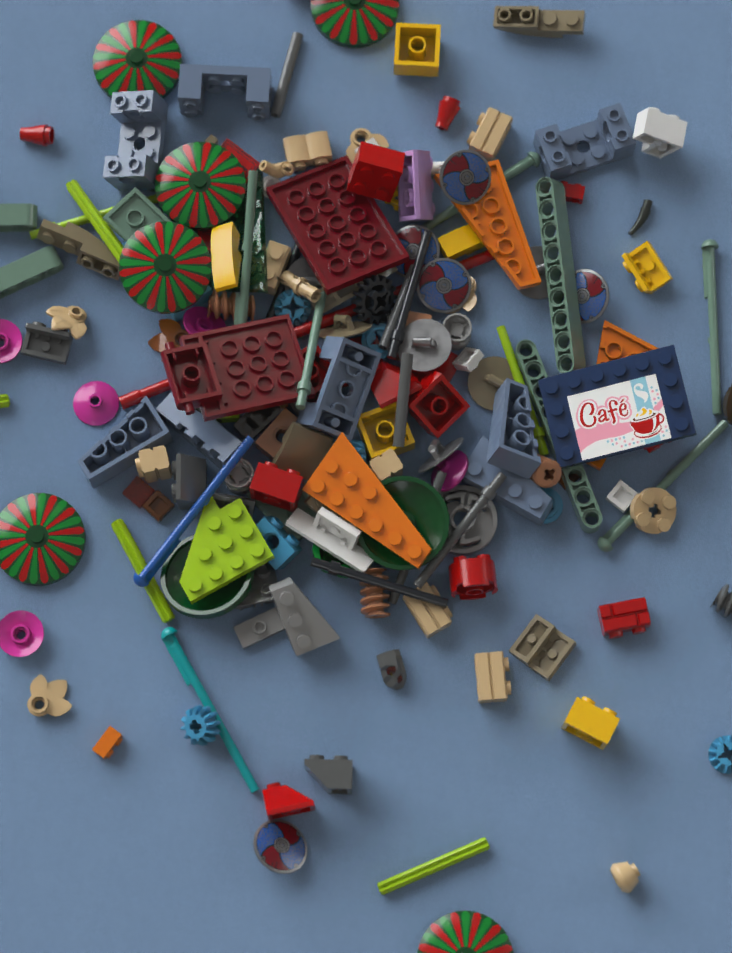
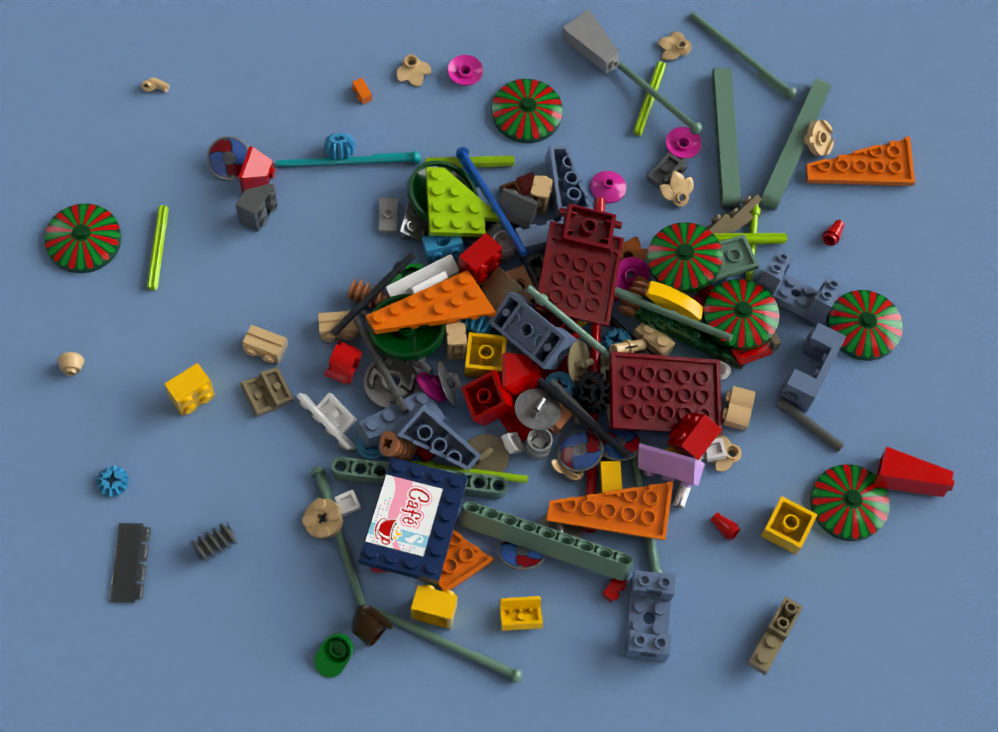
camera: 110 degrees right, 10 degrees down
(277, 170) = (731, 375): tan arm -> none
(300, 618) = (376, 235): light grey wedge -> none
(392, 669) = (309, 284): dark grey rock -> none
(402, 400) = (499, 367): dark grey piece -> none
(465, 177) = (658, 498): shield -> none
(490, 133) = (691, 548): tan brick -> none
(536, 561) = (333, 416): none -> white bracket
(624, 617) = (255, 456): red brick -> none
(642, 217) = (569, 639): pearl dark grey helmet -> none
(659, 132) = (630, 673): white brick -> none
(690, 349) = (434, 606): none -> yellow brick

